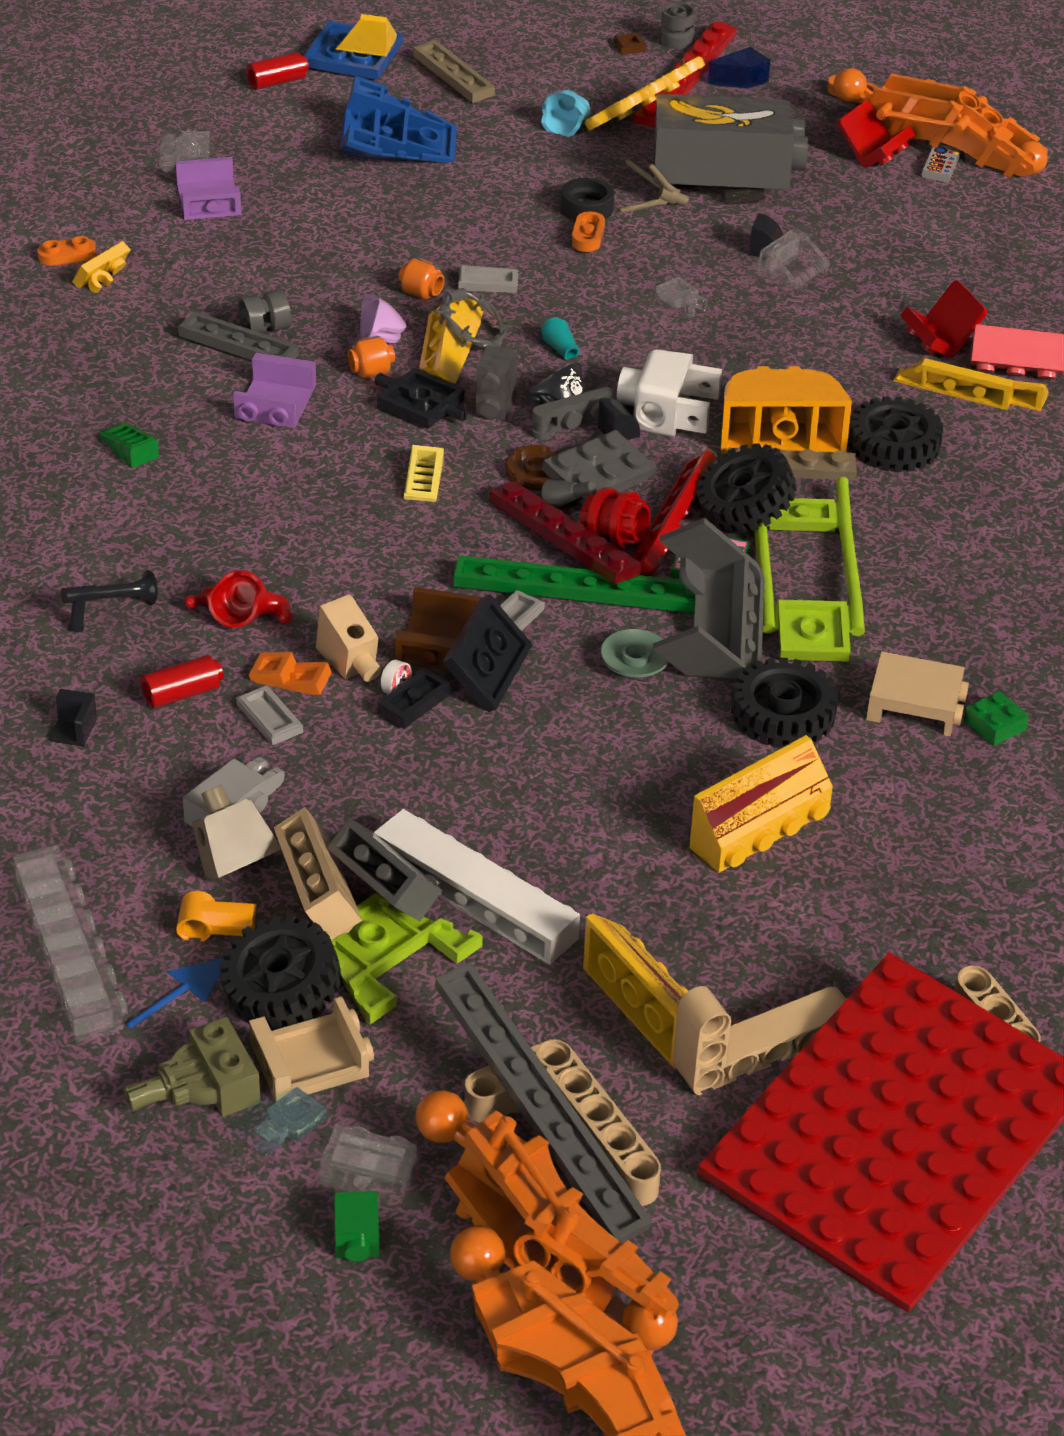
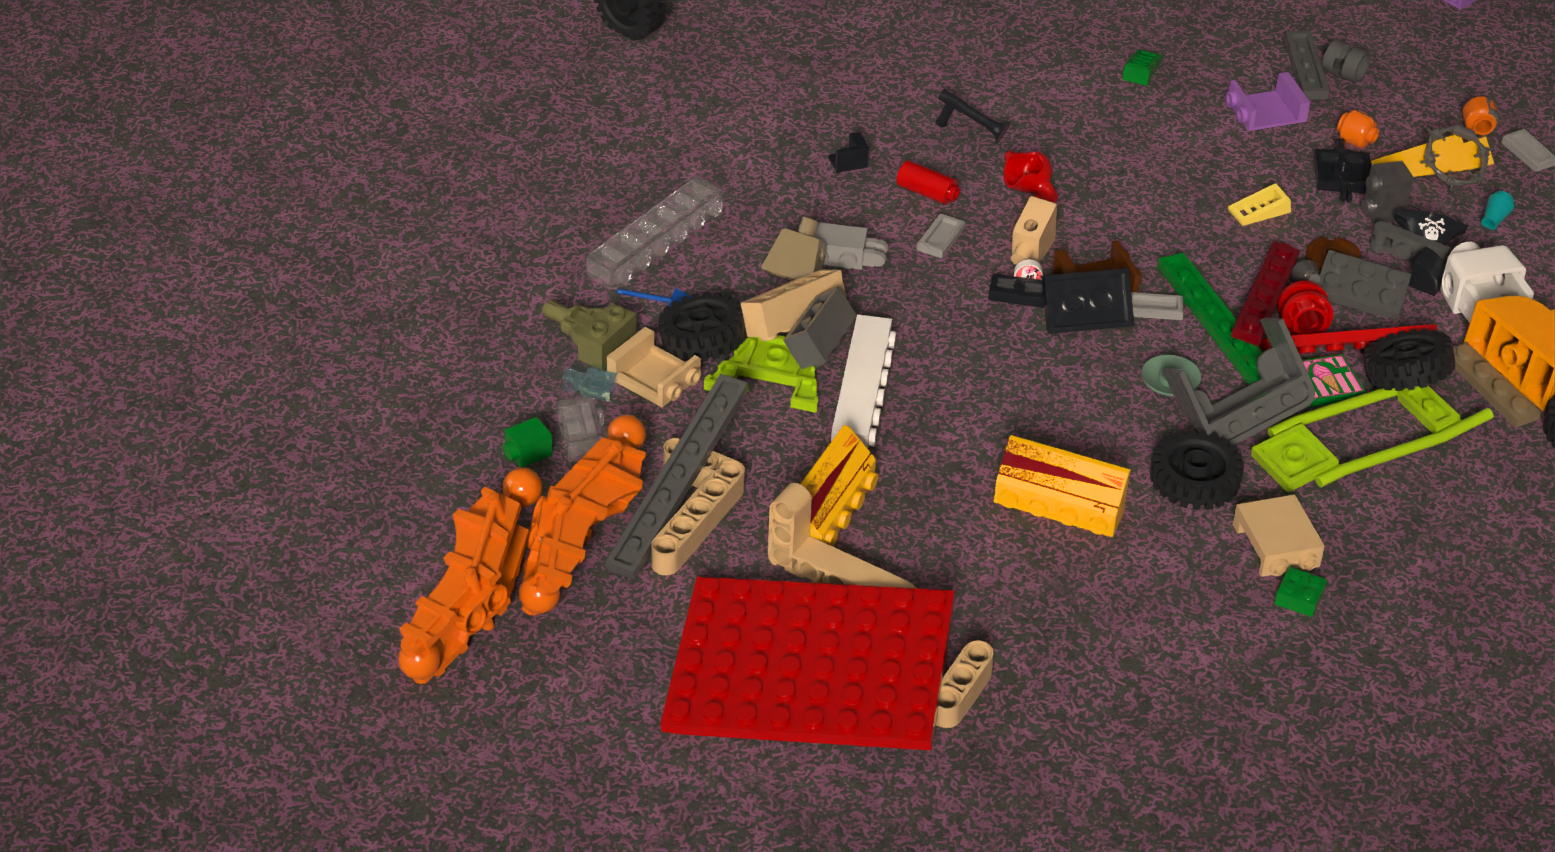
camera: 60 degrees right, 0 degrees up
(204, 916) = (729, 279): light orange piece -> none
(283, 672) = (989, 228): orange slope -> none
(380, 320) = (1401, 117): lavender hat -> none

